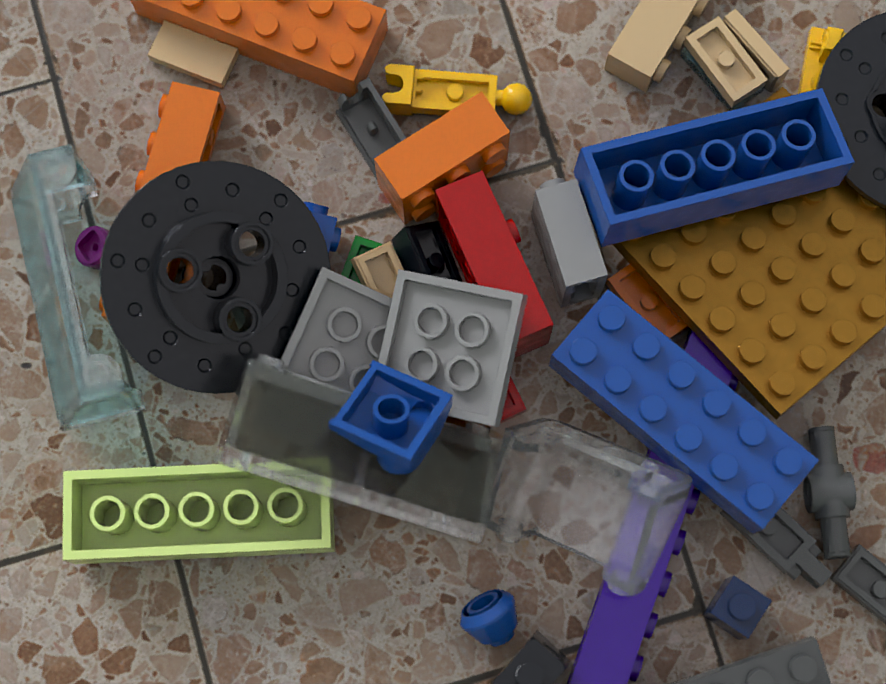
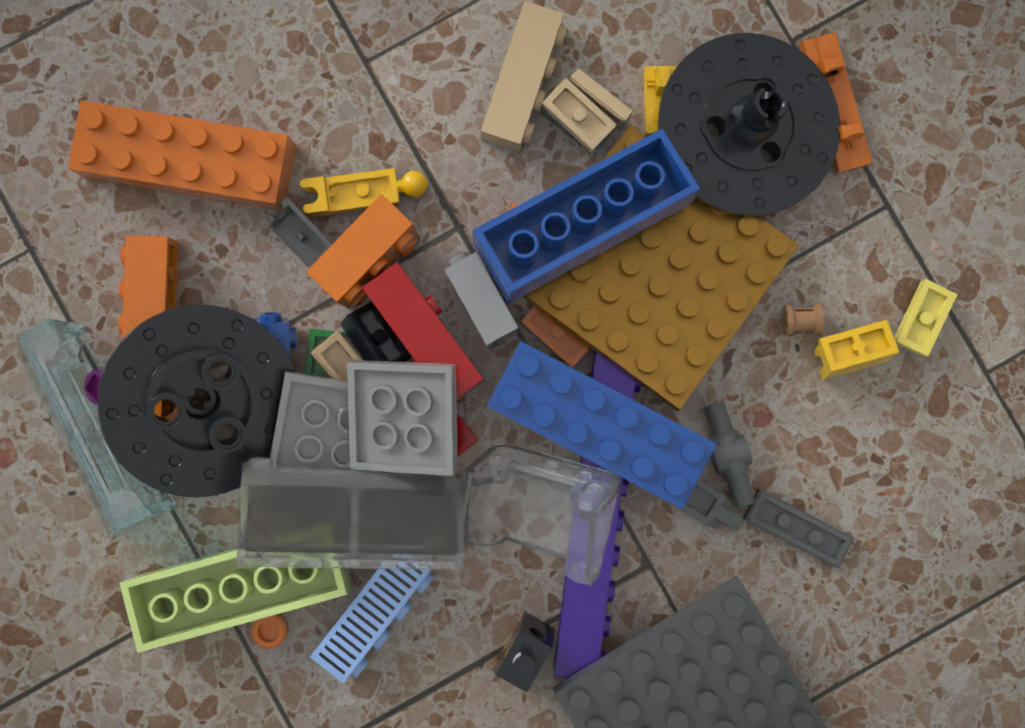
camera: 10 degrees left, 10 degrees up
(193, 54) = (139, 203): tan tile -> none
(221, 580) = (270, 631): none -> orange tile
(351, 584) = (367, 619): none -> light blue brick
(393, 417) = (369, 490): blue slope -> none
(490, 617) = (485, 613): blue cone -> none
(737, 608) = (675, 563): dark blue brick -> none

